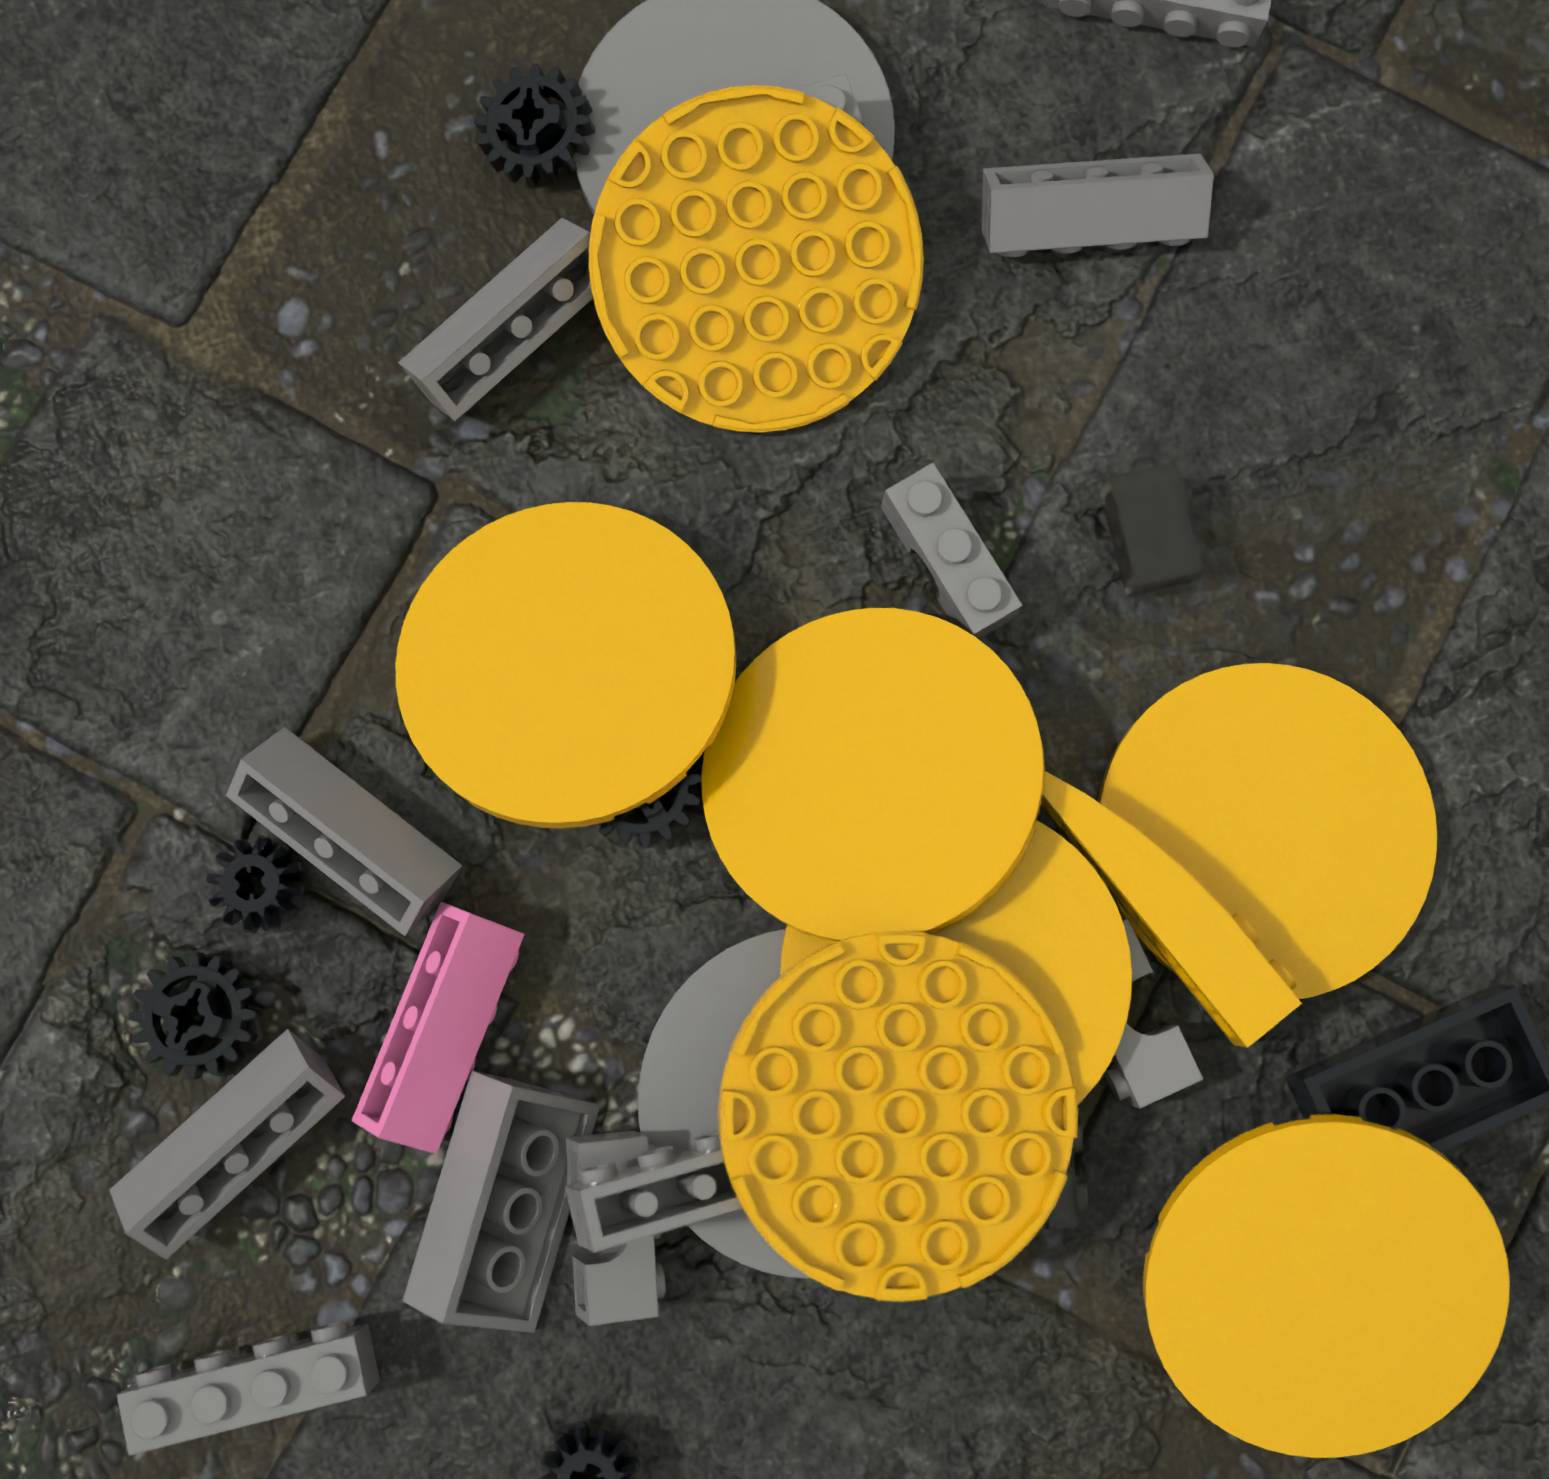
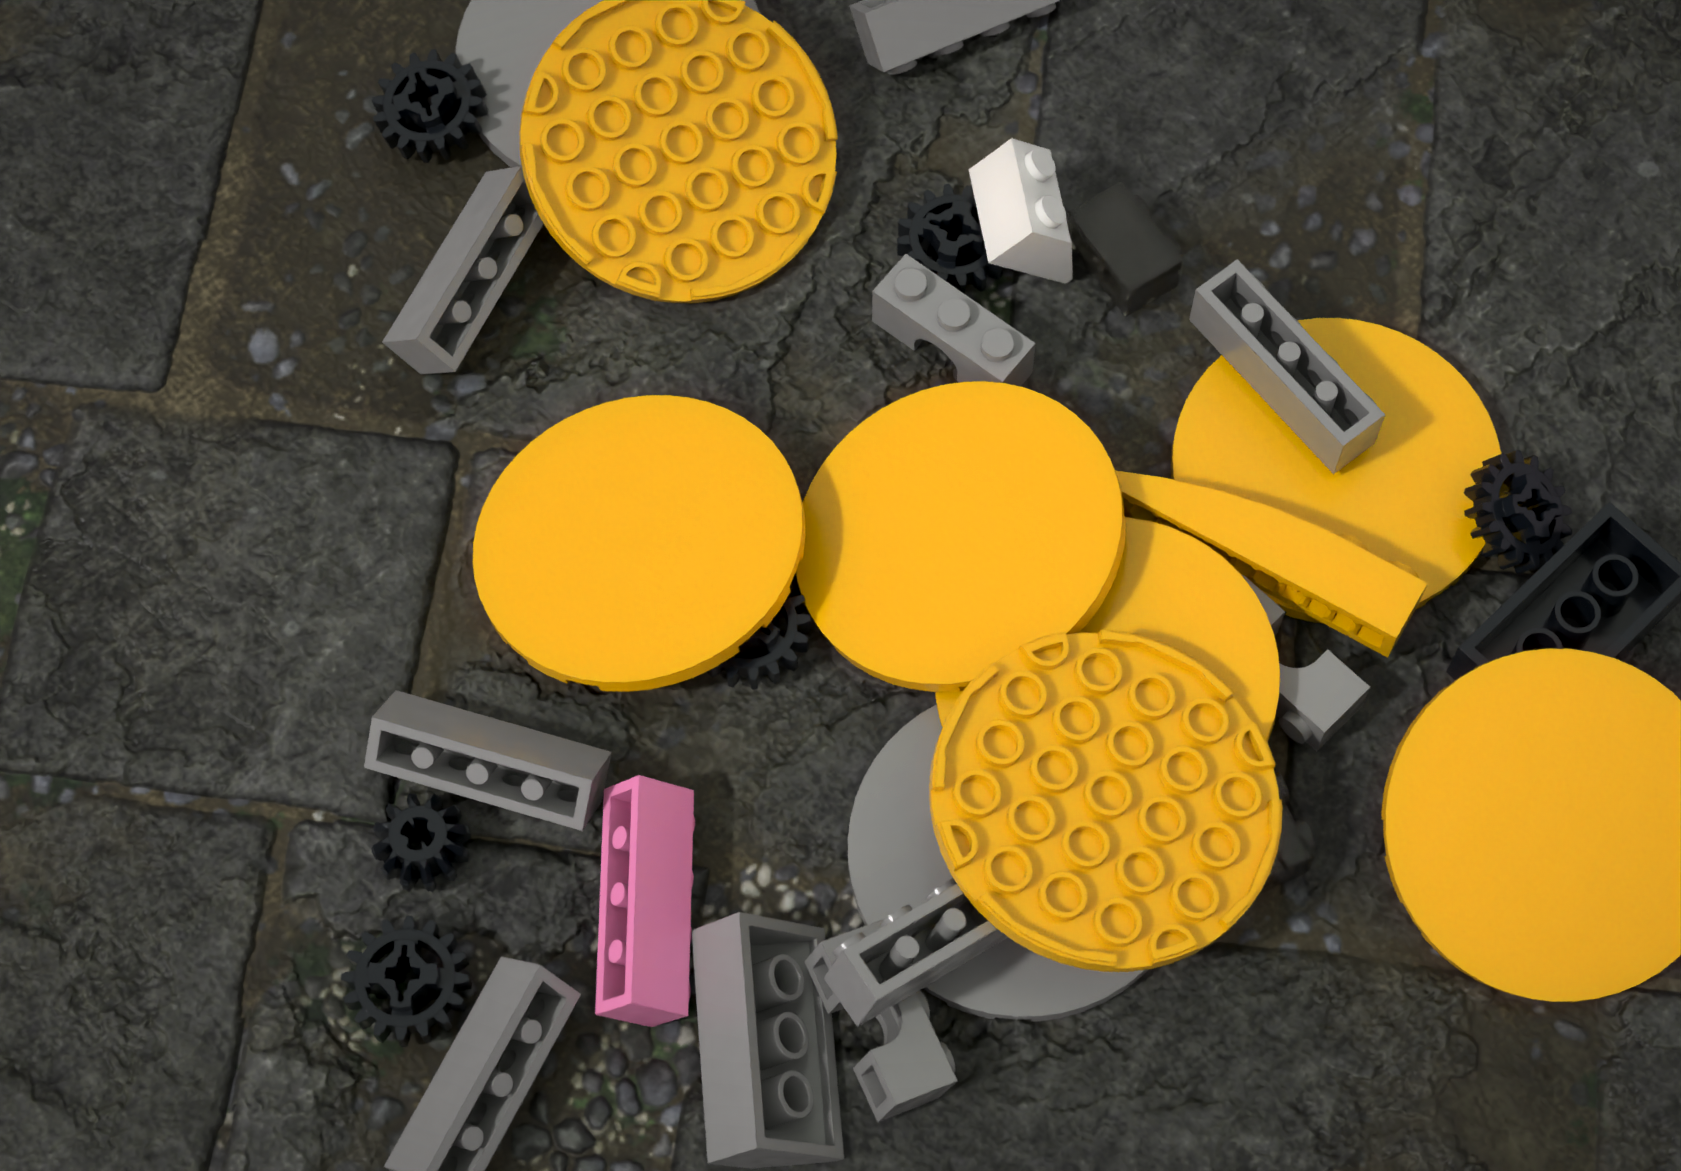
camera: 15 degrees left, 15 degrees down
(1006, 471) = (935, 227): none -> black gear
(1064, 459) = (1023, 211): none -> white slope
(1258, 720) = (1286, 366): none -> light grey brick
(1422, 951) = (1517, 511): none -> black gear

